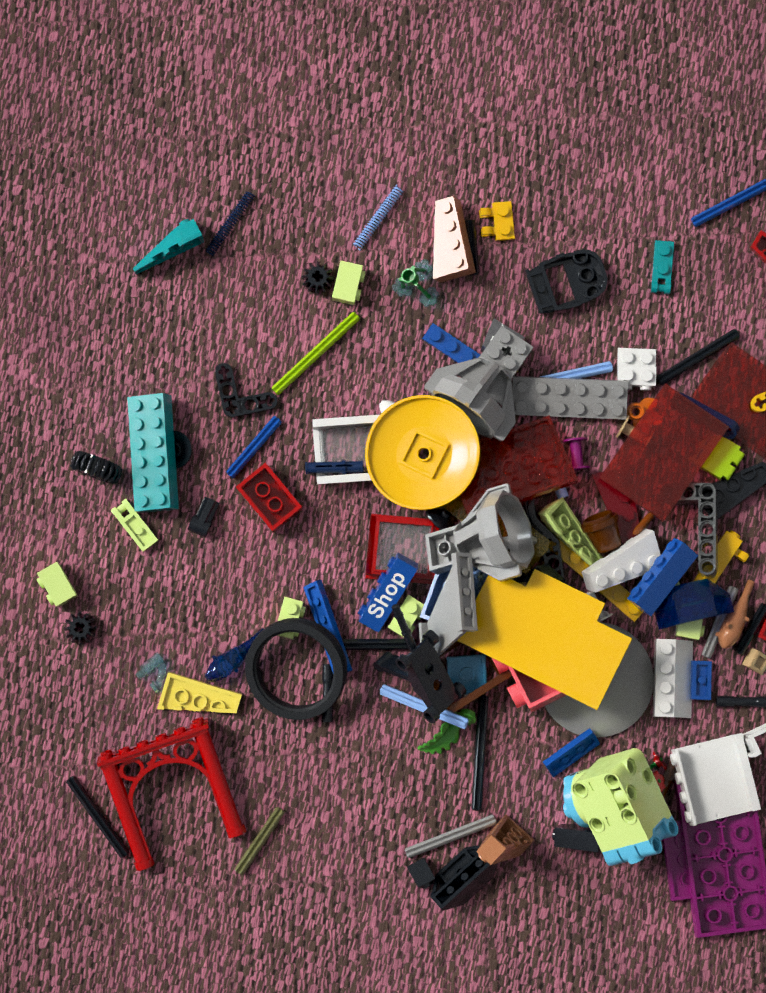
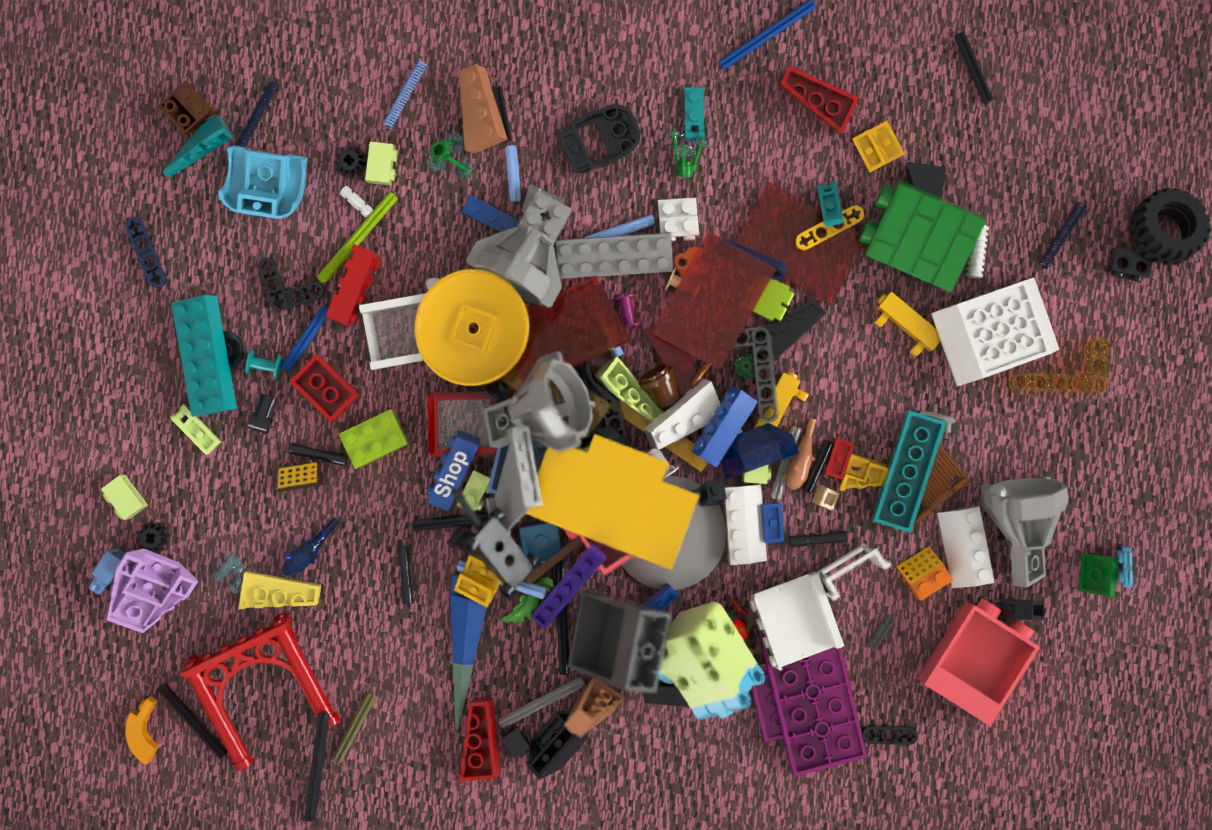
camera: 10 degrees left, 5 degrees up
(35, 655) = (105, 570): none -> medium blue hinge
(41, 821) = (136, 732): none -> light orange arch
(70, 678) = (147, 588): none -> lavender wedge
(96, 467) = (148, 376): black gear -> none
(103, 346) = (143, 254): none -> dark blue beam
(163, 209) = (186, 108): none -> reddish brown slope
(210, 468) = (263, 364): none -> teal piece
(219, 875) = (317, 766): none -> black axle
(230, 289) = (263, 182): none -> medium azure piece
(234, 582) = (300, 476): none -> slope
(242, 559) = (306, 451): none -> black piece
(271, 702) = (347, 588): black tyre -> none
(291, 609) = (358, 506): yellowish green brick -> none
(307, 400) = (353, 285): none -> red wedge
(312, 553) = (374, 438): none -> lime brick
(318, 317) = (356, 201): none -> white axle
(323, 614) = (398, 511): blue plate -> none
(334, 467) = (395, 349): dark blue pin -> none
(385, 869) = (481, 749): none -> red wedge
(386, 737) = (466, 624): none -> blue plate
(401, 705) = (477, 582): none -> yellow slope
(477, 307) = (513, 173): none -> light blue axle
(491, 719) = (569, 586): none -> dark purple plate
(502, 220) = (530, 85): yellow plate -> none
(537, 776) = (619, 641): none -> dark grey brick
(643, 643) = (711, 493): none -> black brick
(647, 317) = (683, 166): none -> plant
(686, 515) = (740, 366): none -> green plate
(697, 357) = (738, 201): black axle -> none

